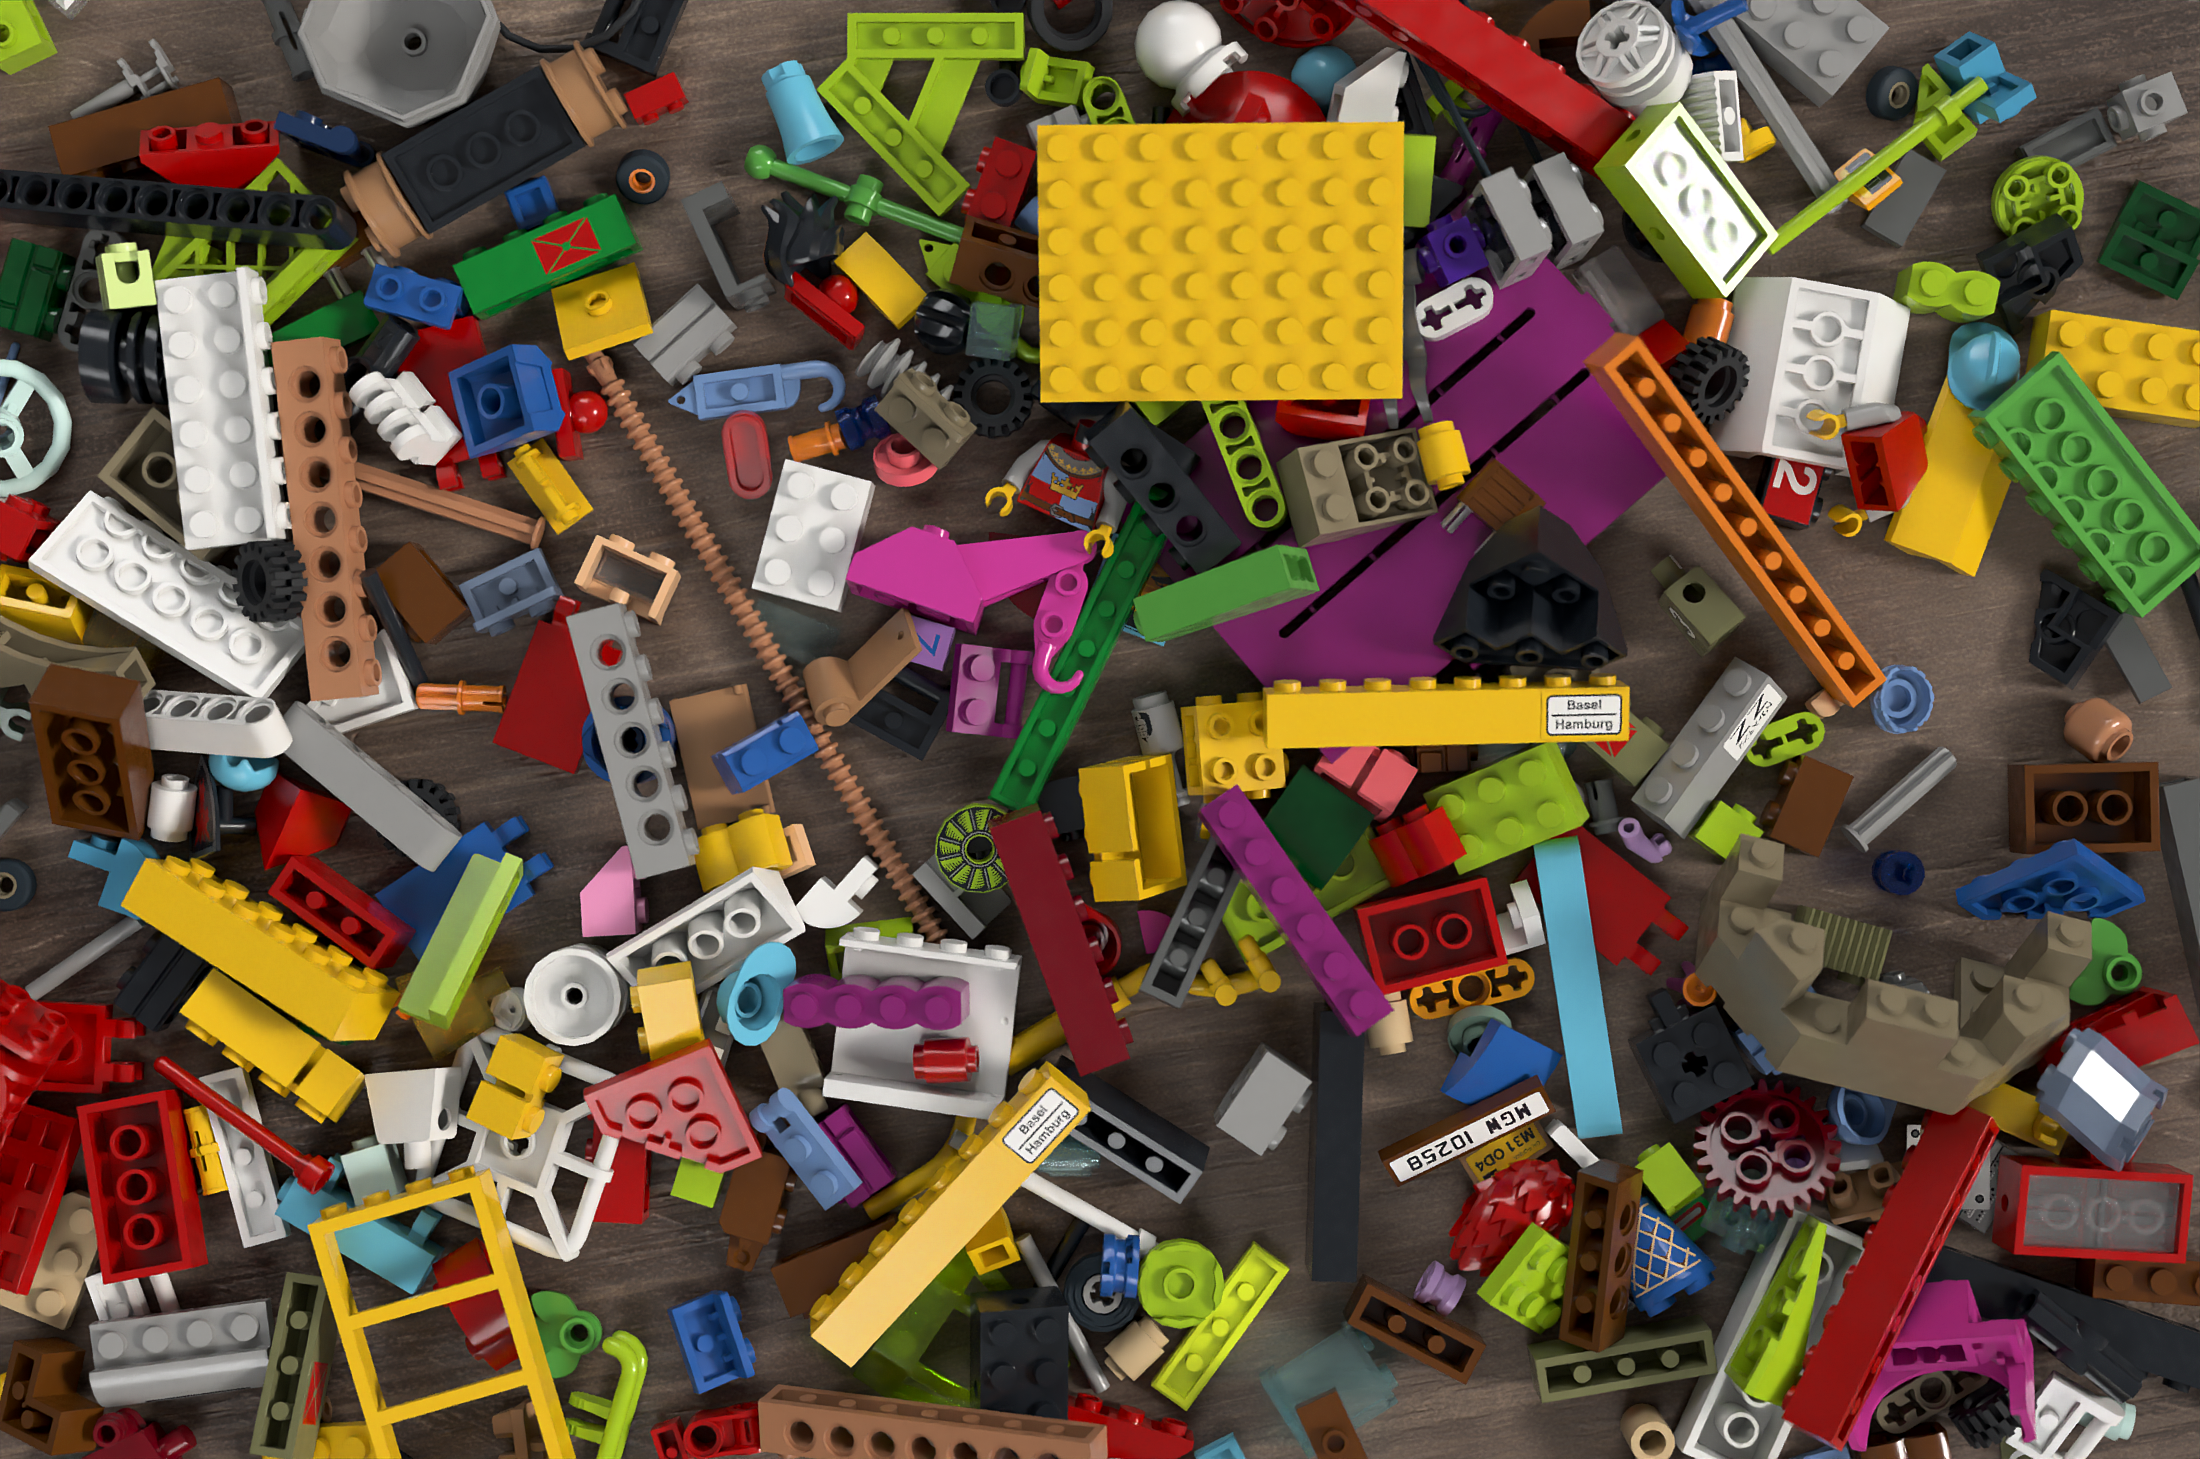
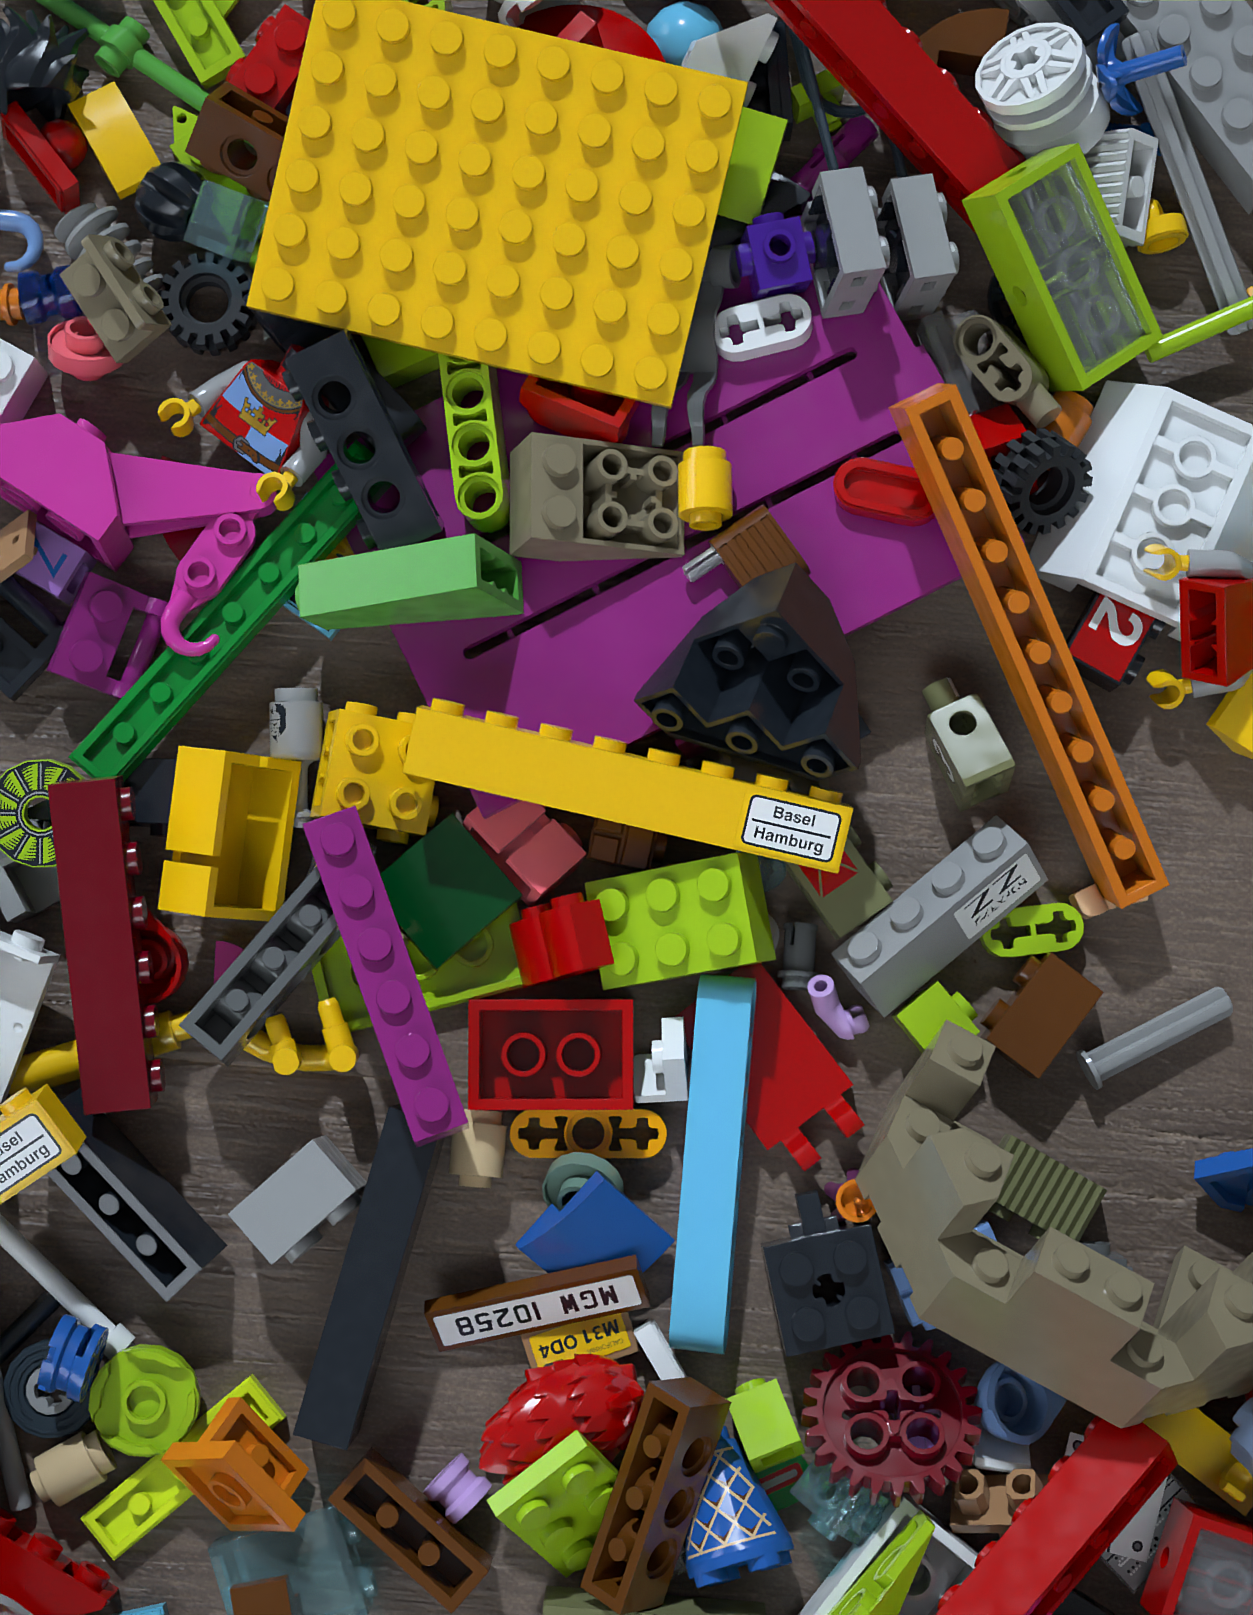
camera: 15 degrees right, 5 degrees down
(1071, 1159) = (50, 1213): clear light blue brick -> none
(1271, 1319) = (241, 1471): none -> orange bracket
(1586, 422) = (882, 492): none -> red tile
(1685, 314) = (1007, 351): none -> dark tan piece
(1889, 868) = (1122, 1126): clear blue wheel -> none
(1901, 700) = (1183, 917): medium blue hair -> none

